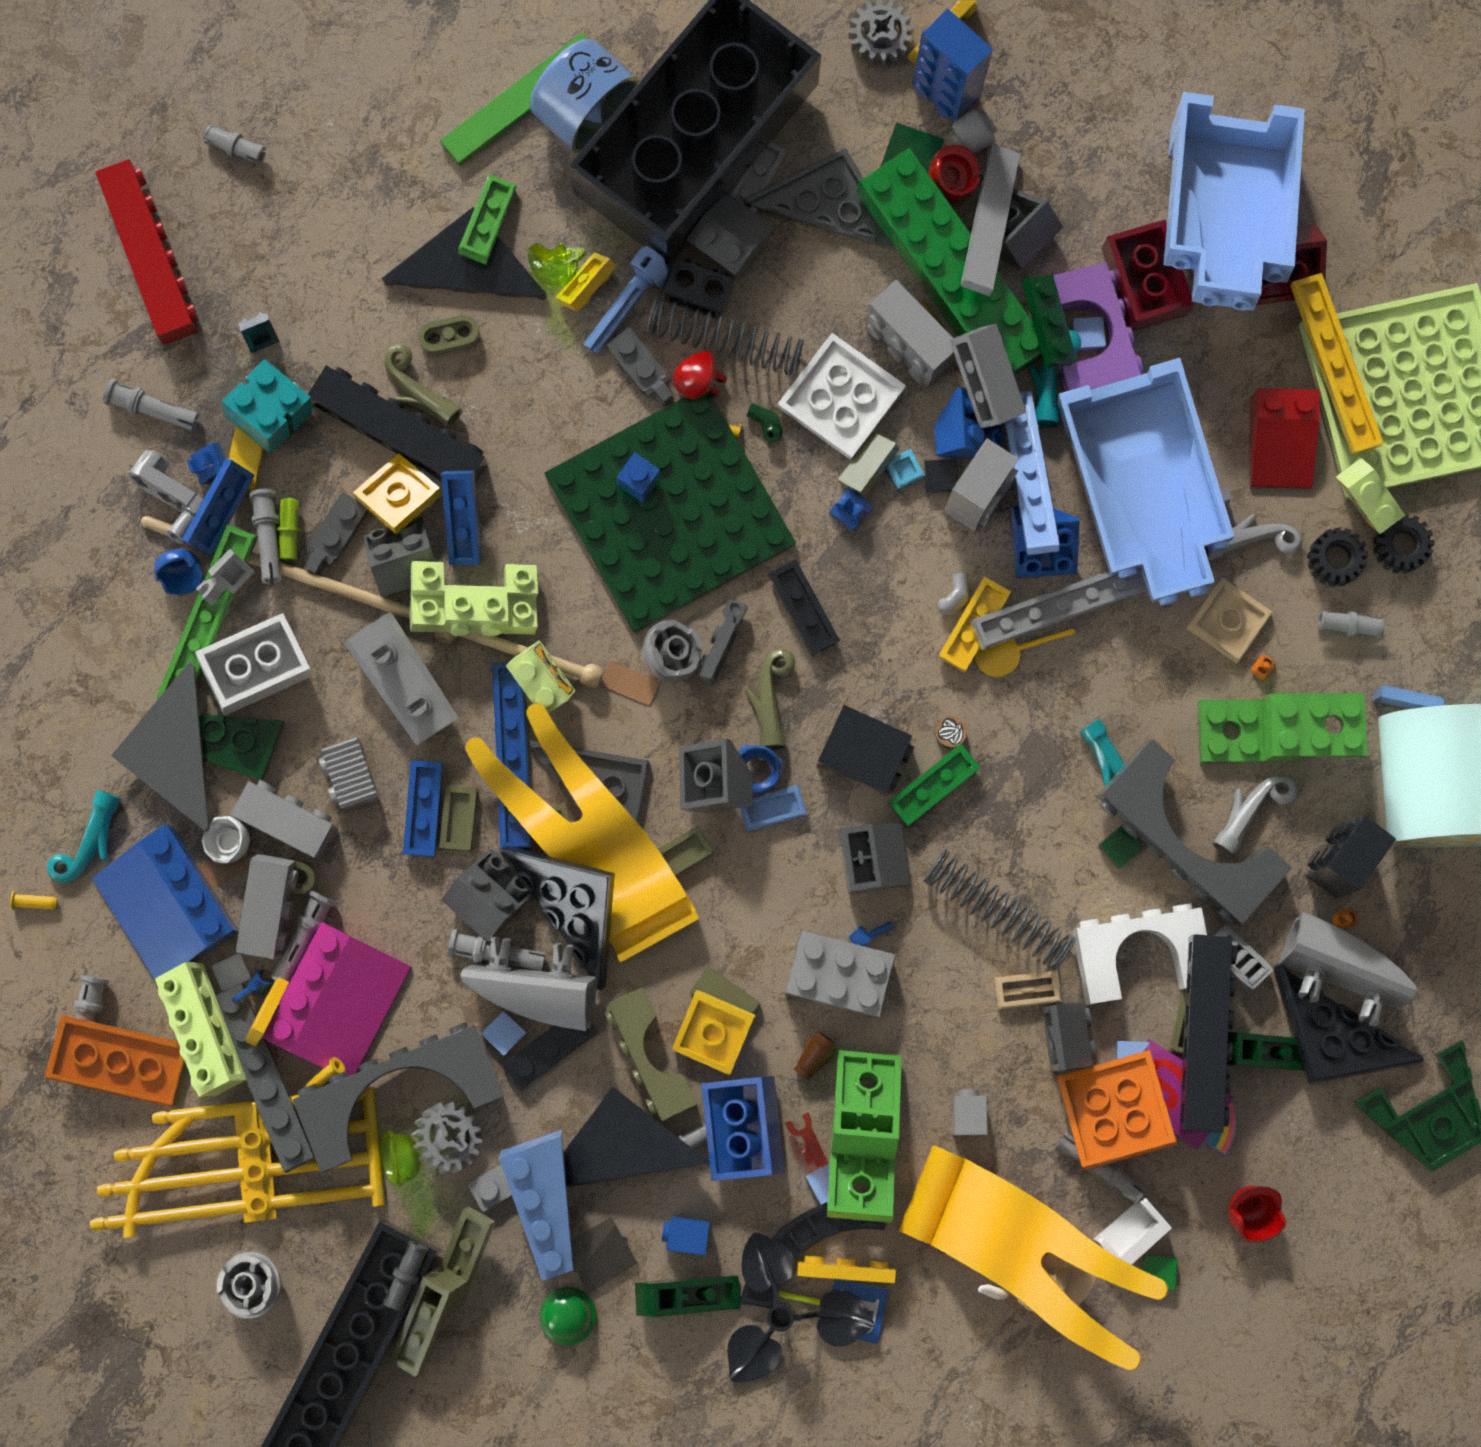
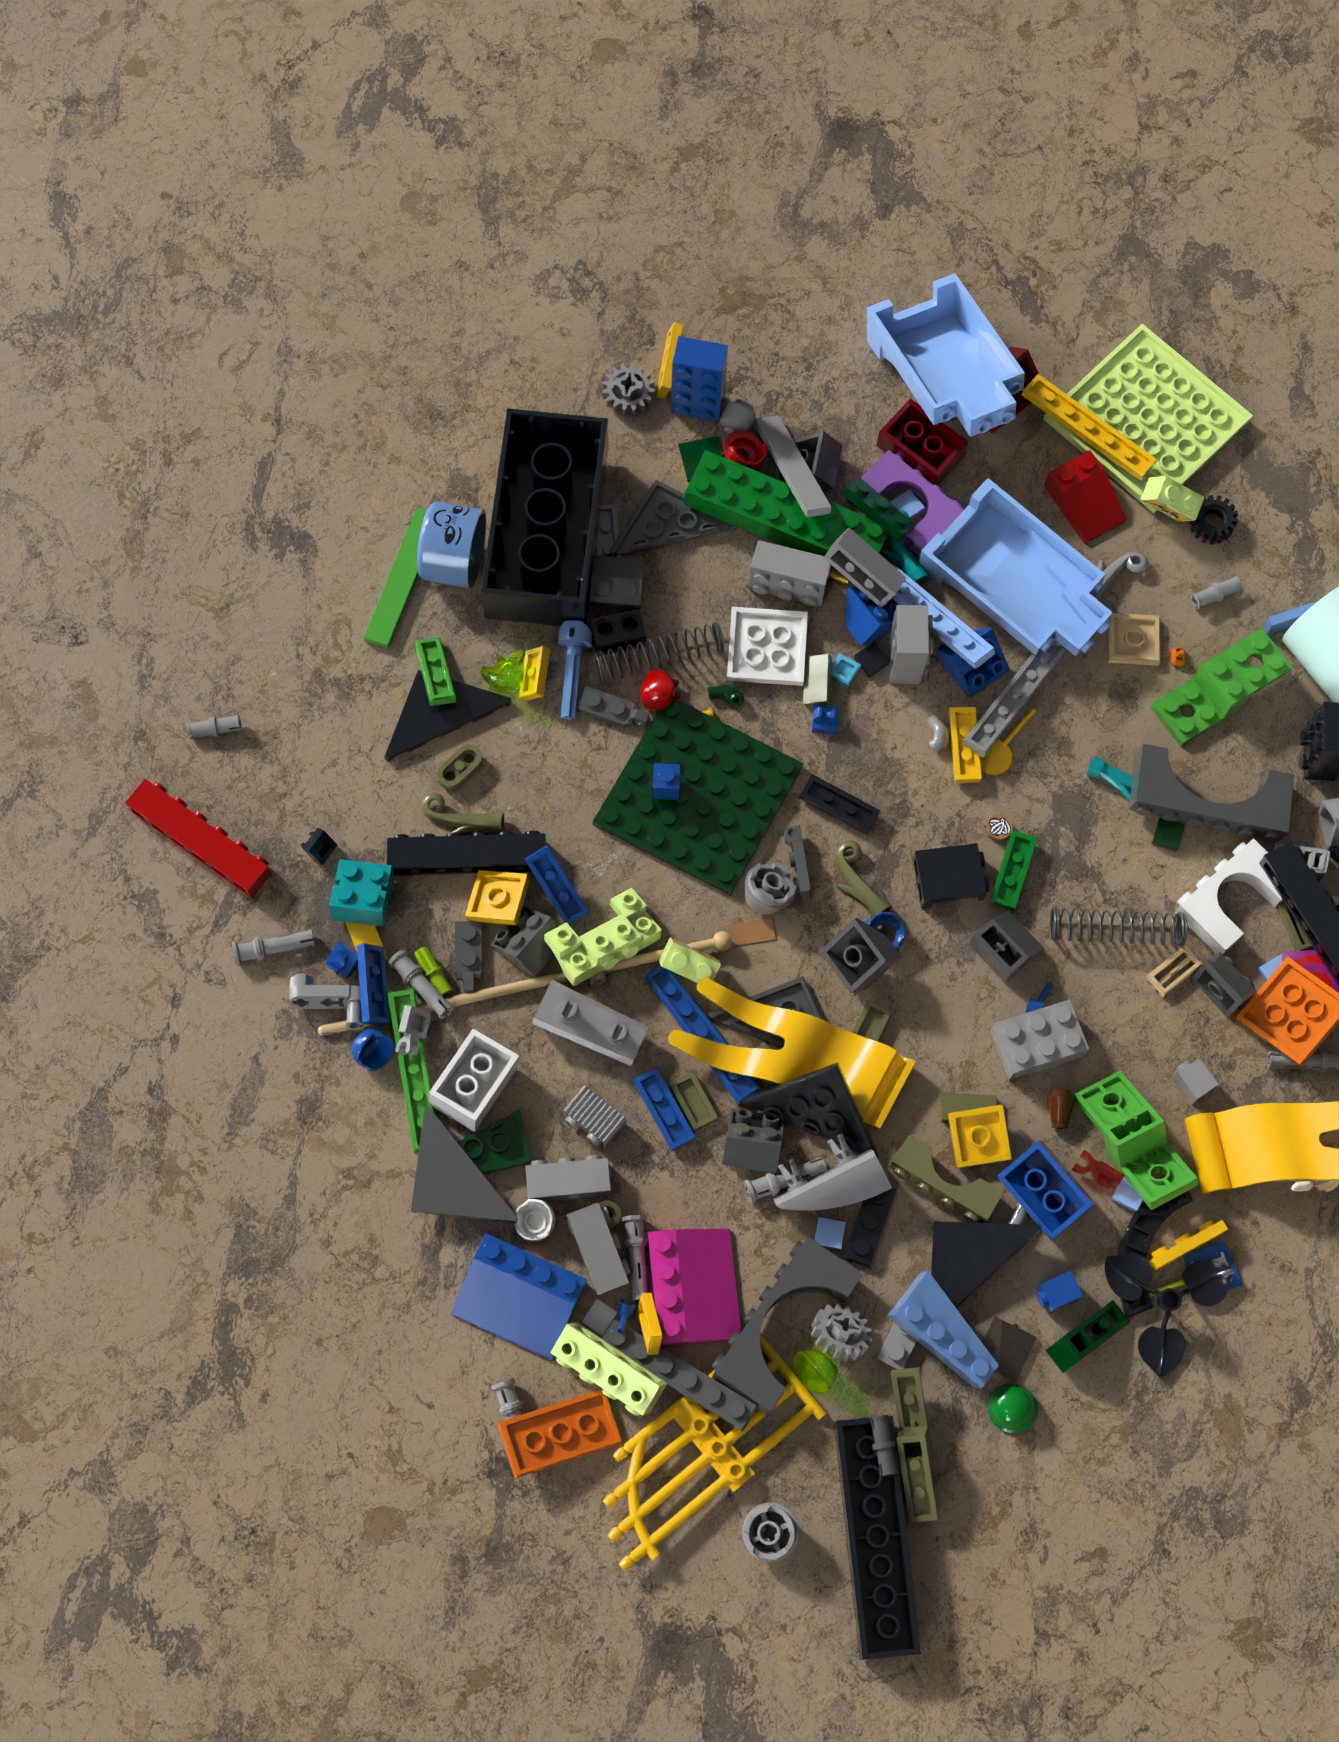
camera: 30 degrees left, 10 degrees down
(32, 901) = (418, 1357): yellow piece -> none
(94, 837) = (433, 1280): teal plant -> none
(334, 1068) = (722, 1345): yellow piece -> none
(774, 808) = (913, 956): medium blue tile -> none
(1243, 813) = (1234, 761): light grey plant -> none
(1334, 575) = (1172, 566): black tyre -> none

